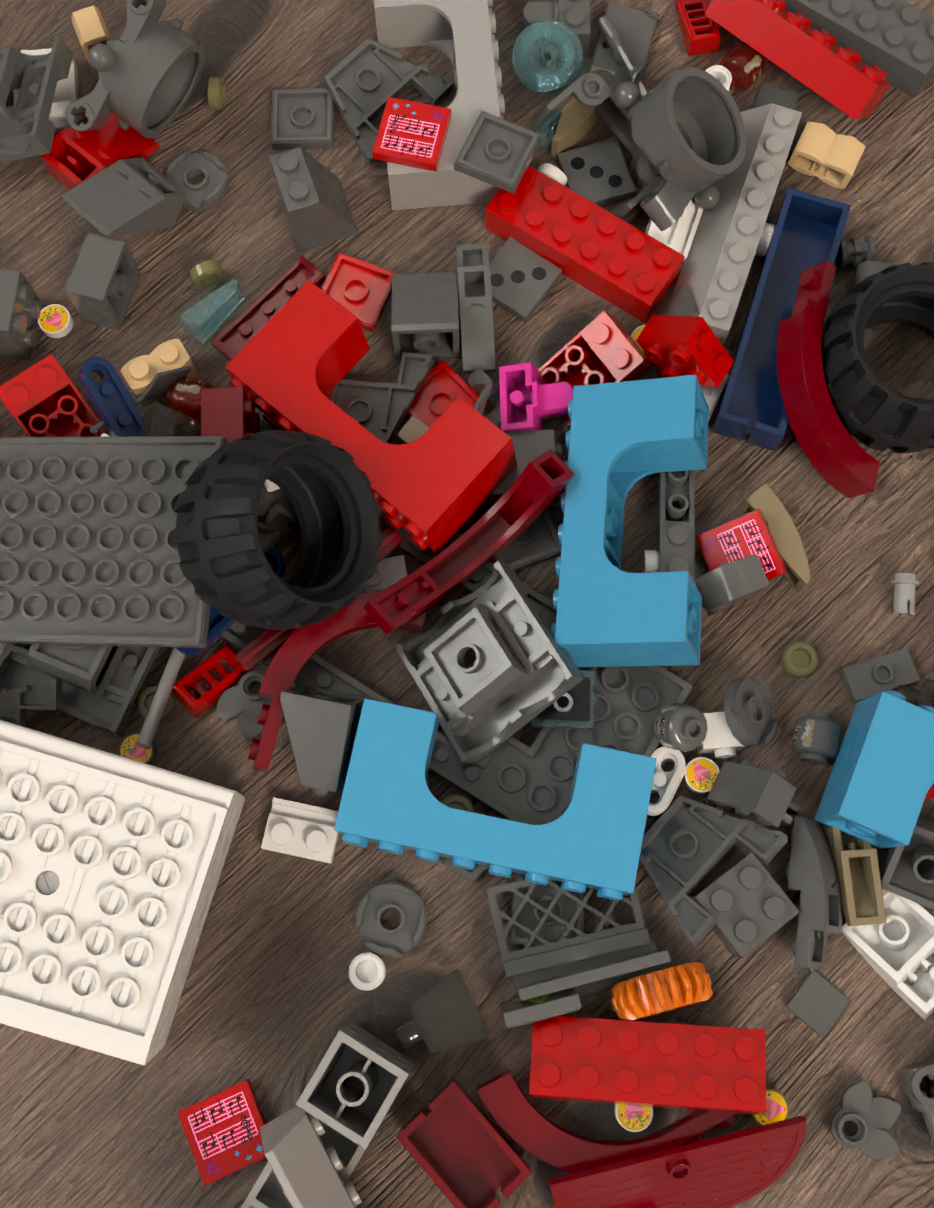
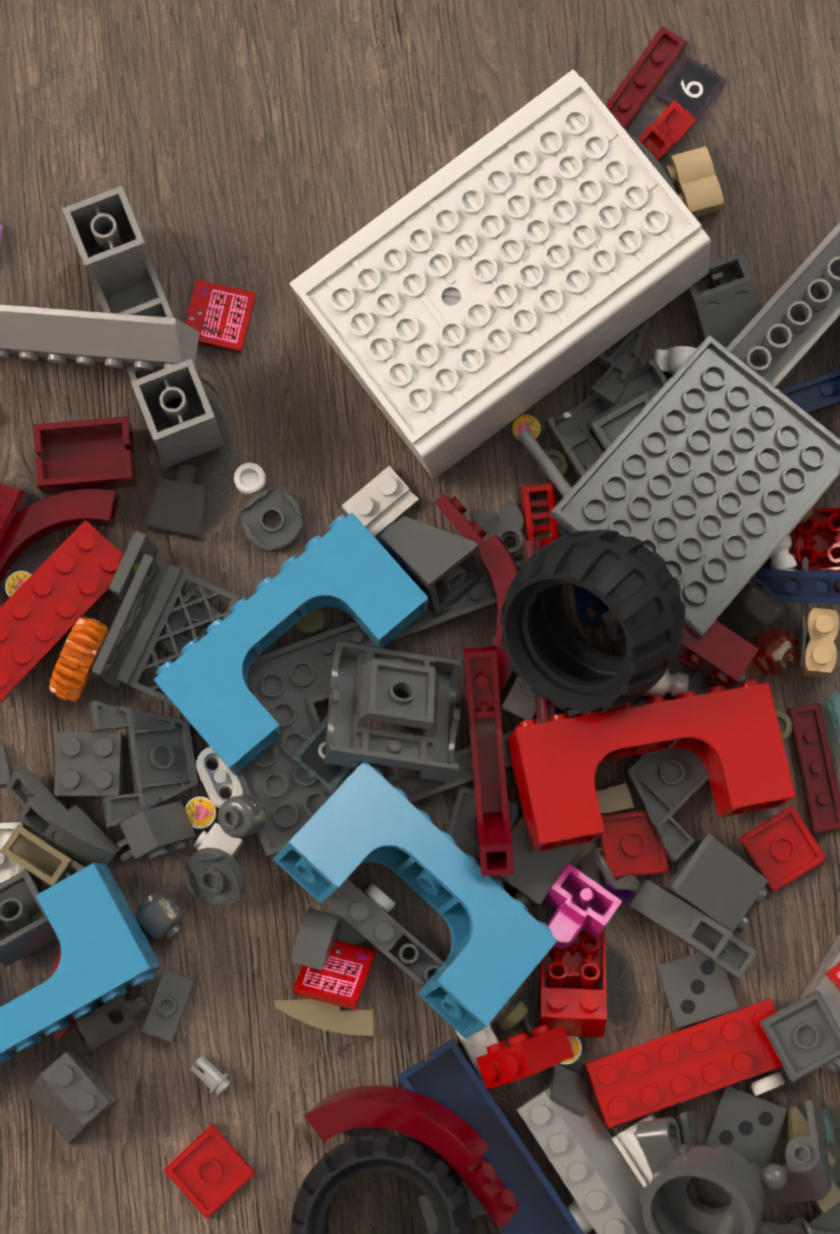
camera: 125 degrees right, 5 degrees up
(799, 660) = (225, 955): olive tile -> none

